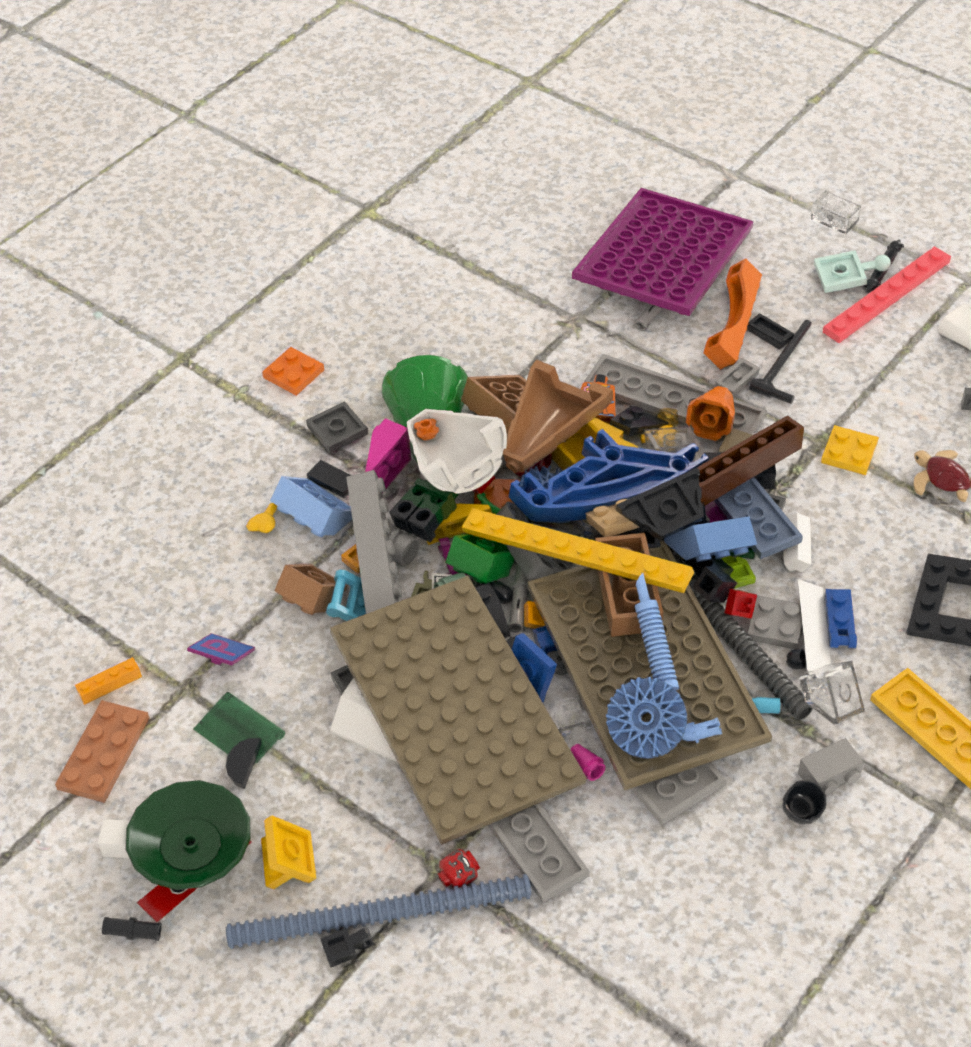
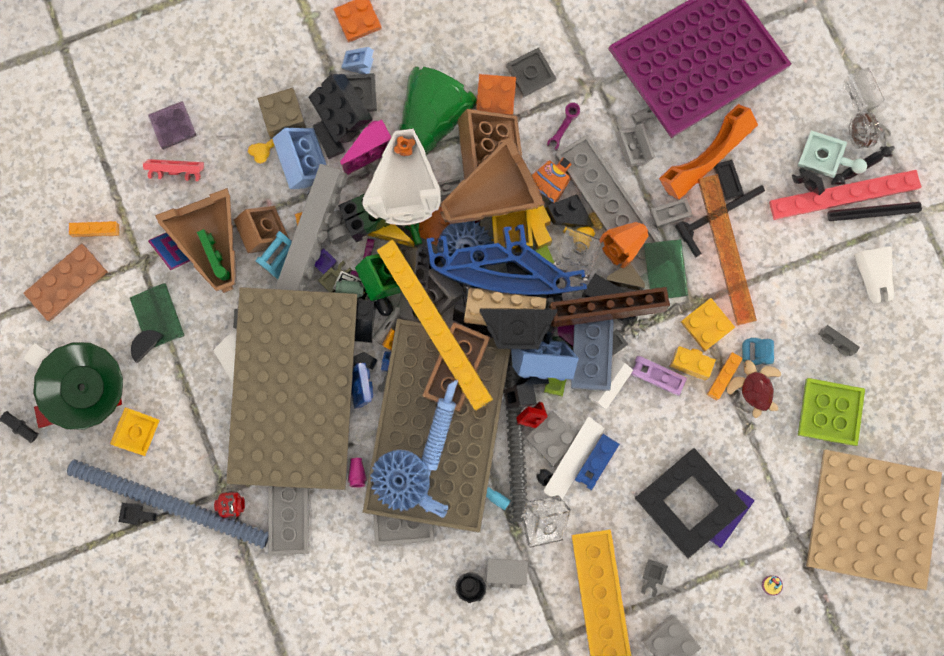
camera: 30 degrees right, 30 degrees up
(145, 543) = (172, 125): none -> clear purple plate
(171, 579) = (173, 168): none -> coral plate
(257, 614) = (213, 216): none -> medium nougat cone
(260, 474) = (281, 111): none -> dark tan brick
(273, 632) = (214, 256): none -> green plate
(319, 397) = (358, 60): none -> light blue slope
(329, 439) = (340, 108): none -> black piece
(407, 582) = (325, 262): none -> dark purple plate
(485, 359) = (496, 94): none -> orange plate
(507, 333) = (531, 72): none -> dark grey plate
(574, 342) = (565, 124): none -> magenta brick
(659, 341) = (635, 145): none -> light grey bracket
(762, 411) = (666, 267): none -> clear green piece
(818, 379) = (727, 250): none -> clear orange plate
(839, 512) = (659, 376): none -> lavender plate
(849, 291) = (811, 181): none -> black plate
(862, 235) = (864, 130): none -> clear head
(863, 483) = (692, 362): none -> yellow brick
(904, 482) = (724, 376): none -> light orange piece
(920, 439) = (763, 350): none -> dark azure piece
(925, 293) = (874, 211): none -> black axle

